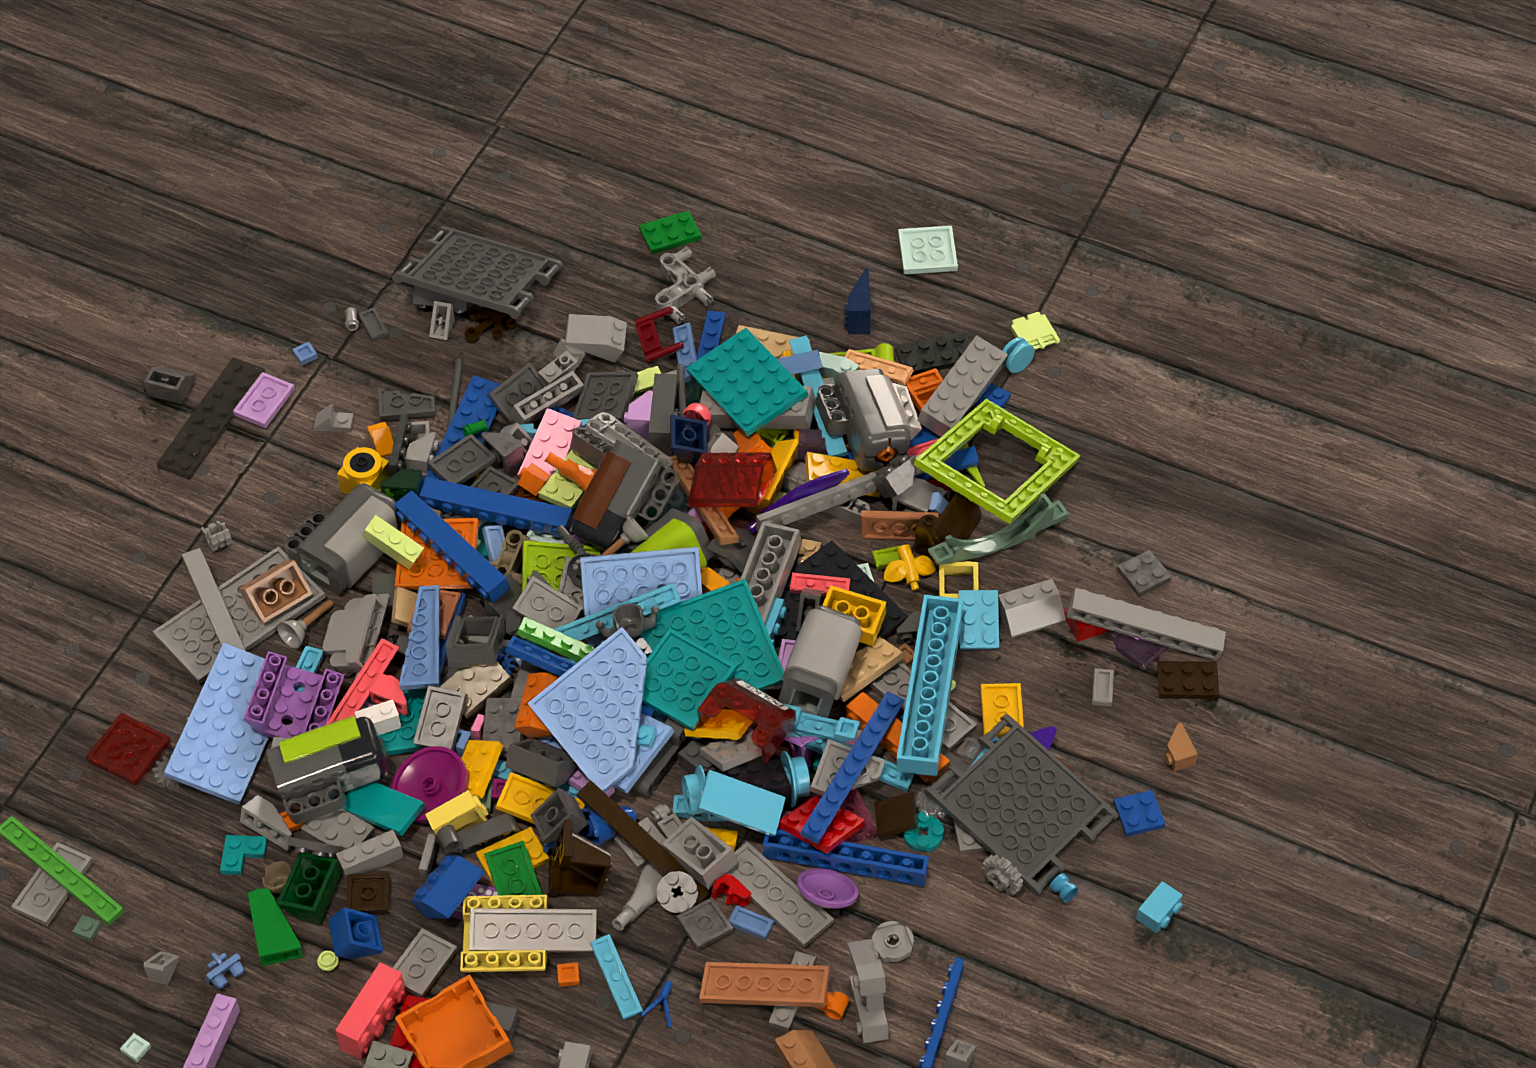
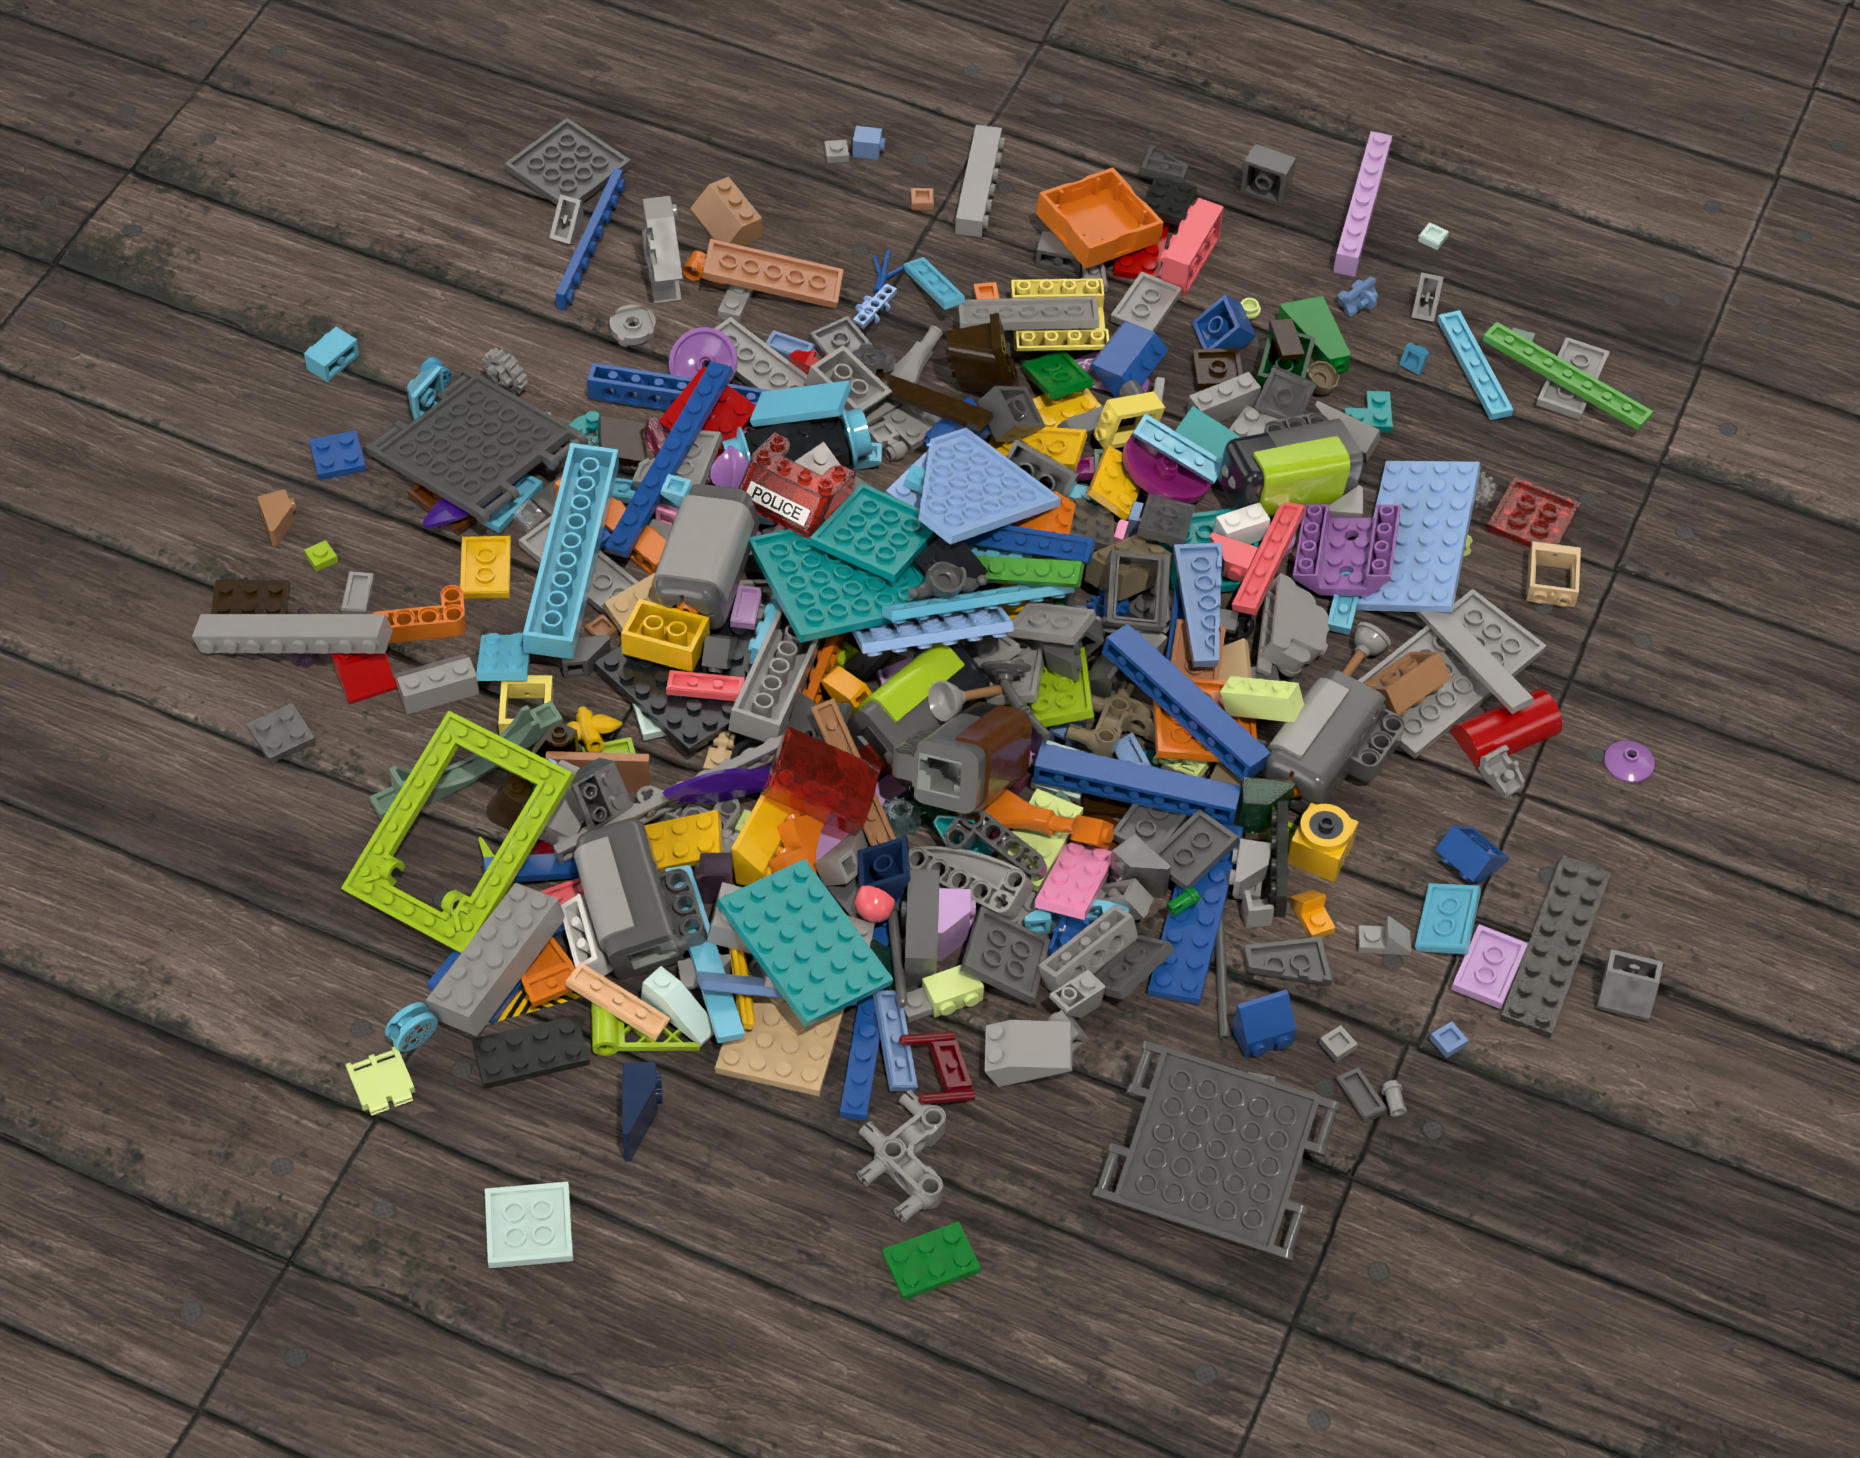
camera: 175 degrees right, 0 degrees up
(117, 556) = (1628, 769): none -> medium lavender dish
(124, 673) = (1566, 558): none -> tan window
(136, 898) = (1475, 365): none -> medium azure plate
(187, 903) = (1414, 358): none -> dark azure tile
(222, 561) = (1516, 730): none -> red brick
(254, 474) = (1471, 853): none -> blue slope
(285, 430) = (1448, 918): none -> medium azure tile
(304, 891) = (1286, 339): none -> dark brown tile
(382, 351) = (1338, 1043): none -> light grey plate
(418, 786) = (1178, 448): none -> medium azure plate
(432, 357) = (1264, 1024): none -> blue slope
(665, 968) = (874, 304): none -> light blue piece
(1055, 653) = (430, 621): none -> orange beam
(1072, 857) = (423, 390): none -> medium azure slope
(1138, 720) = (321, 555): none -> lime plate

